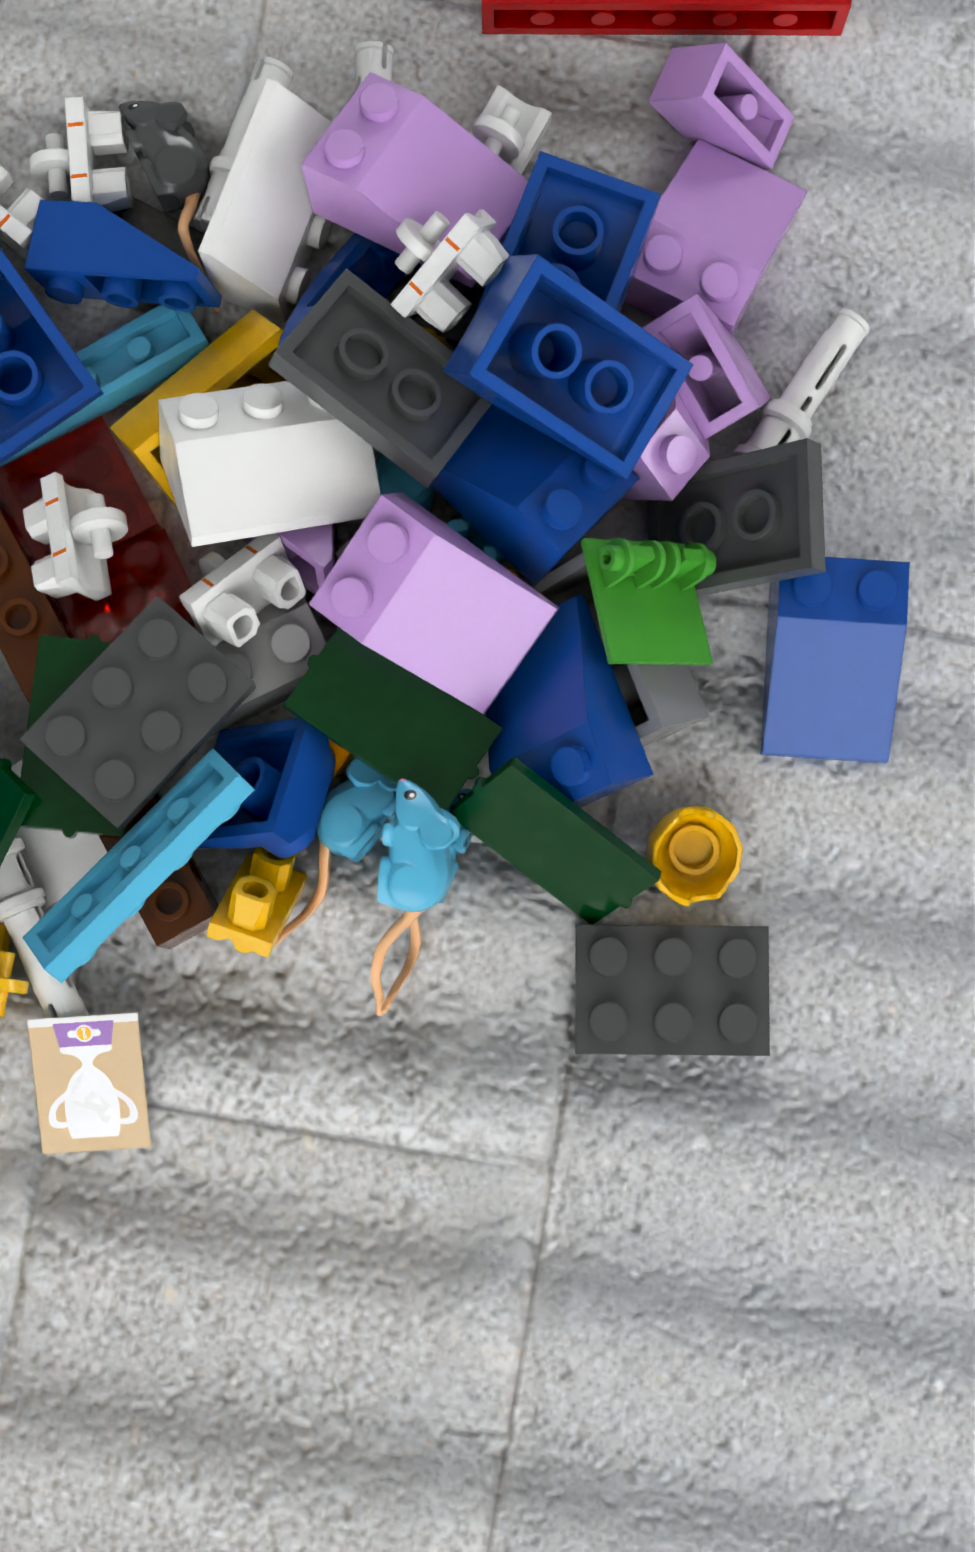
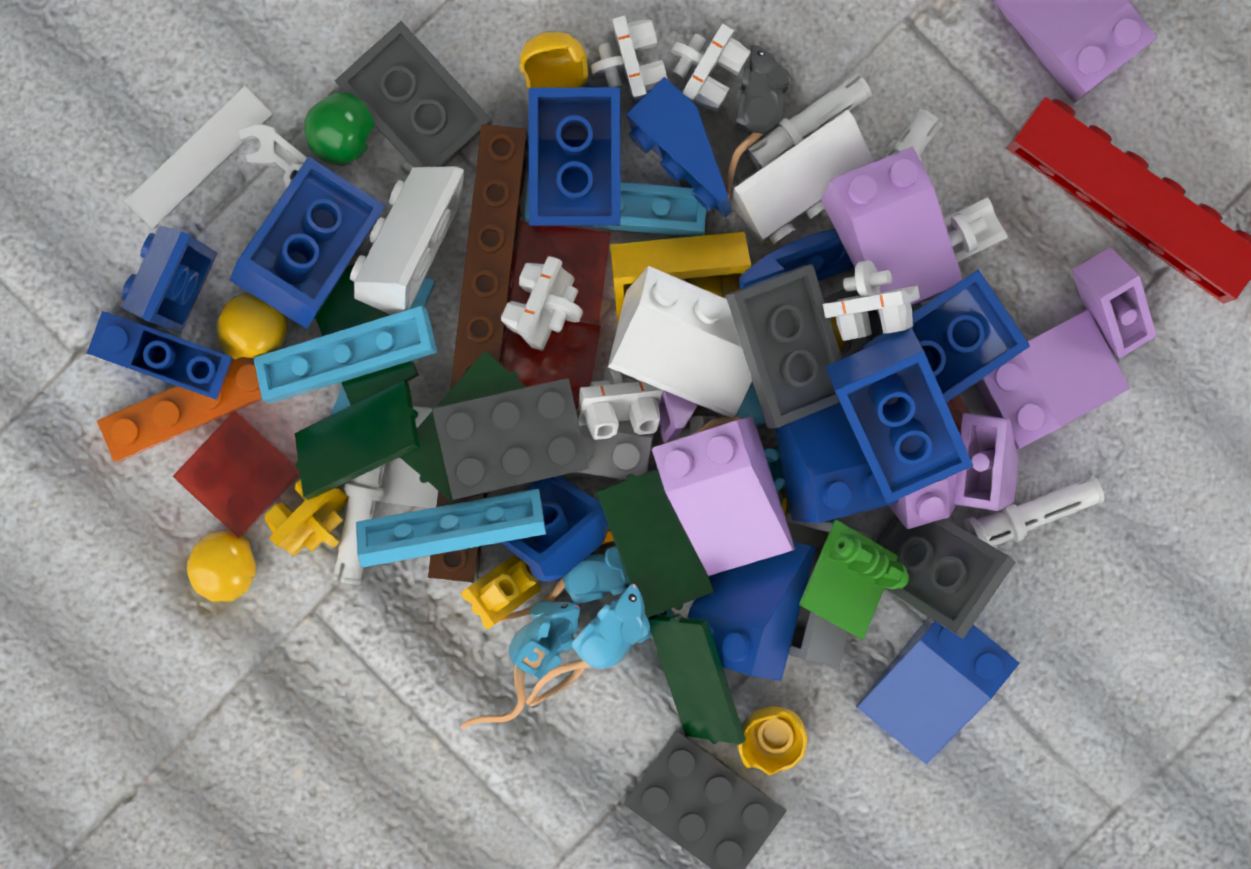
camera: 30 degrees right, 5 degrees up
(89, 1083) = (334, 623): sticker -> none
(346, 943) = (537, 649): none -> medium azure animal

